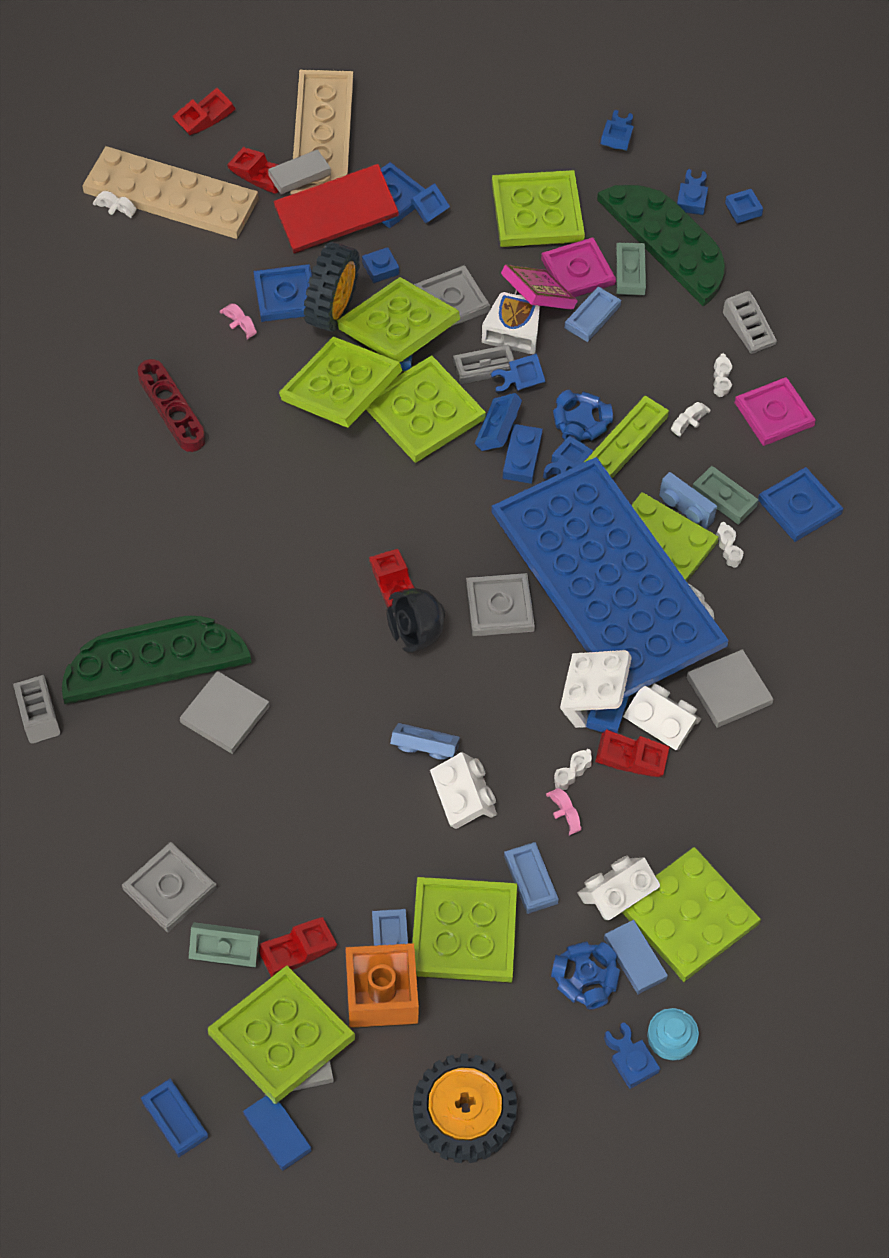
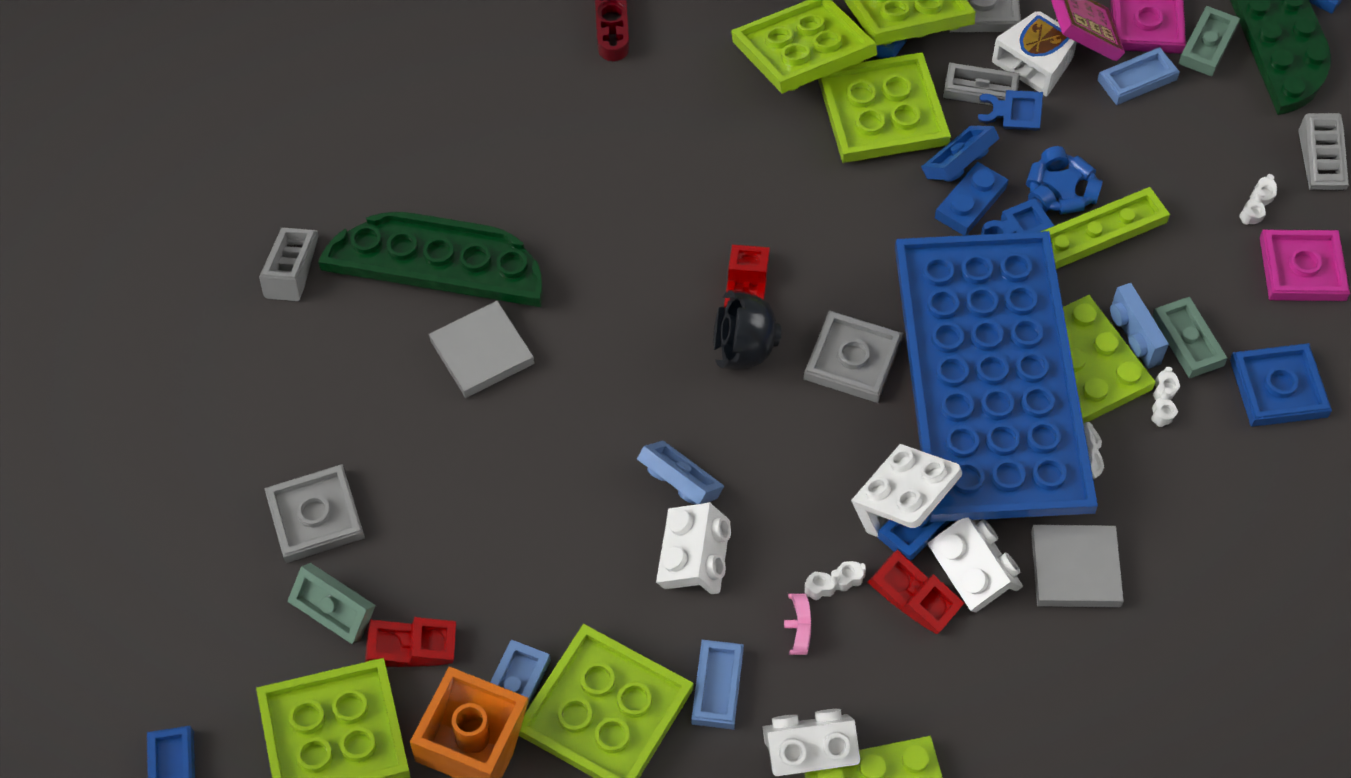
camera: 30 degrees right, 0 degrees up
(690, 416) = (1196, 231): white piece -> none

